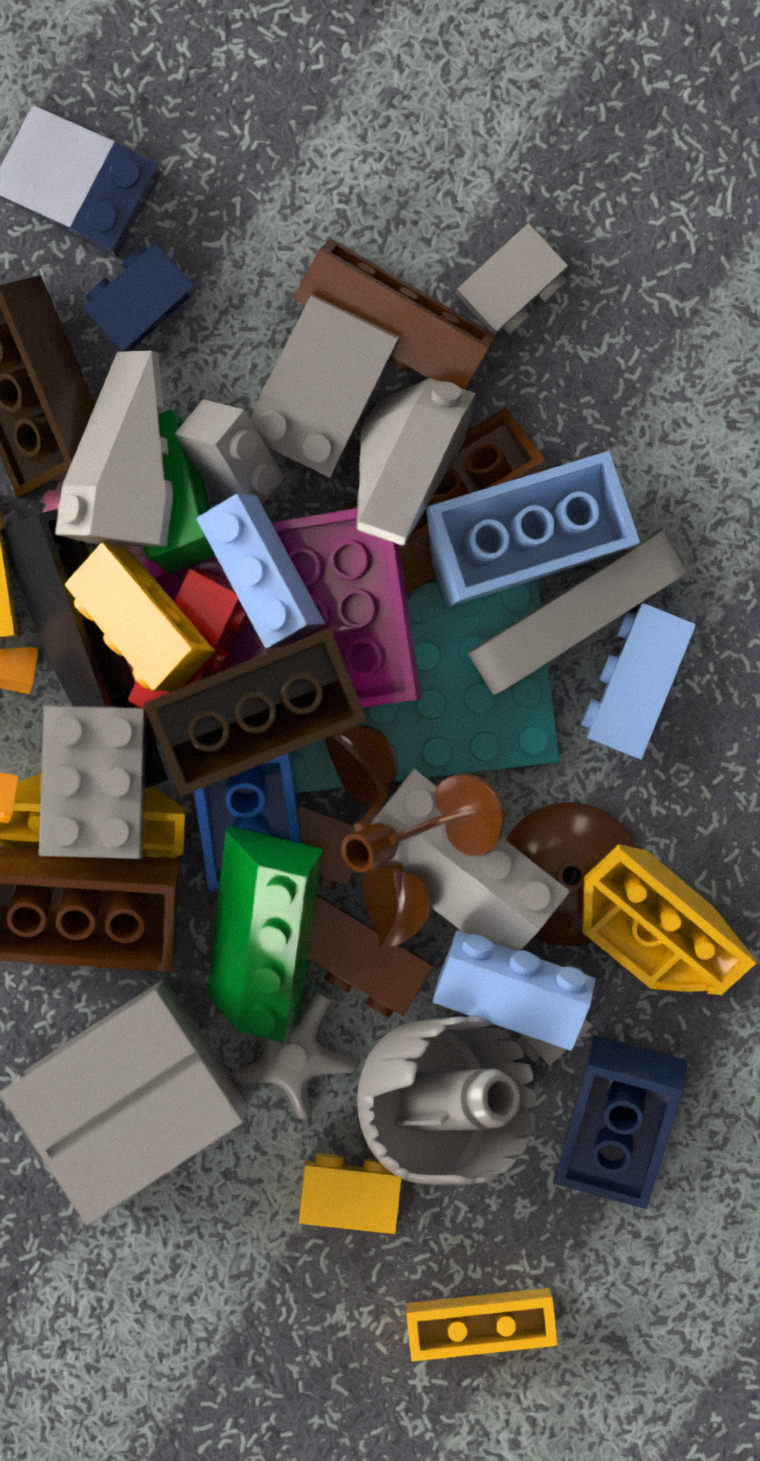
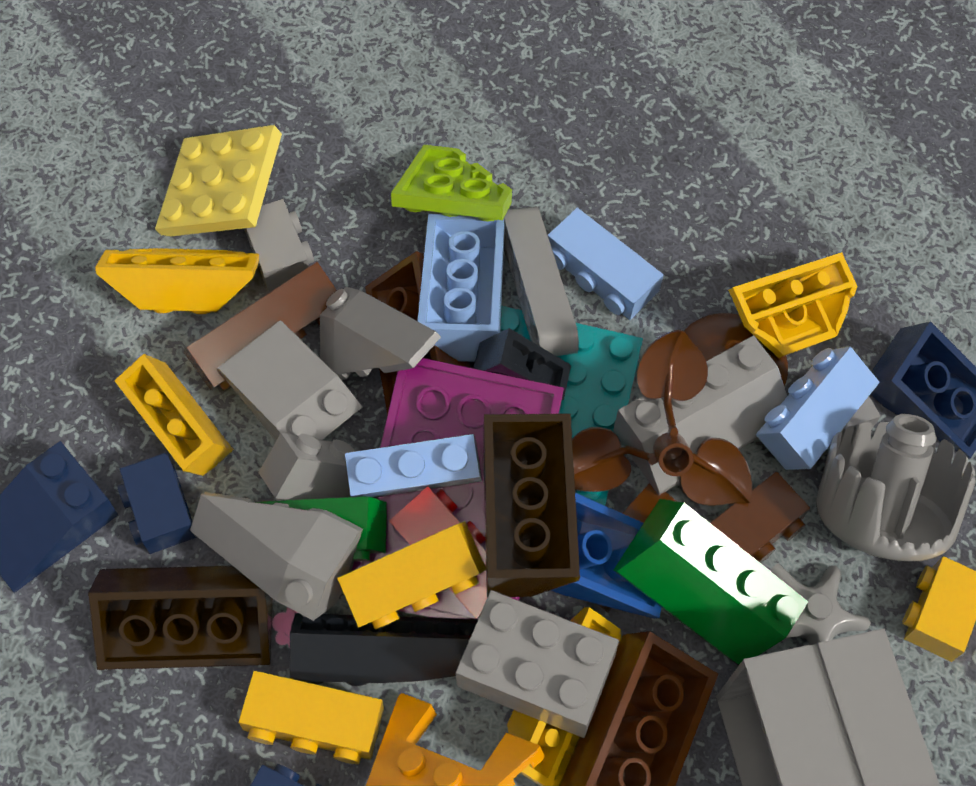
camera: 70 degrees left, 25 degrees down
(243, 268) = (173, 415): none -> yellow brick
(424, 188) = (177, 277): none -> yellow wedge
(433, 640) = (521, 358): none -> black brick
(566, 174) = (219, 182): none -> light yellow plate
(663, 460) = (448, 184): none -> lime plate

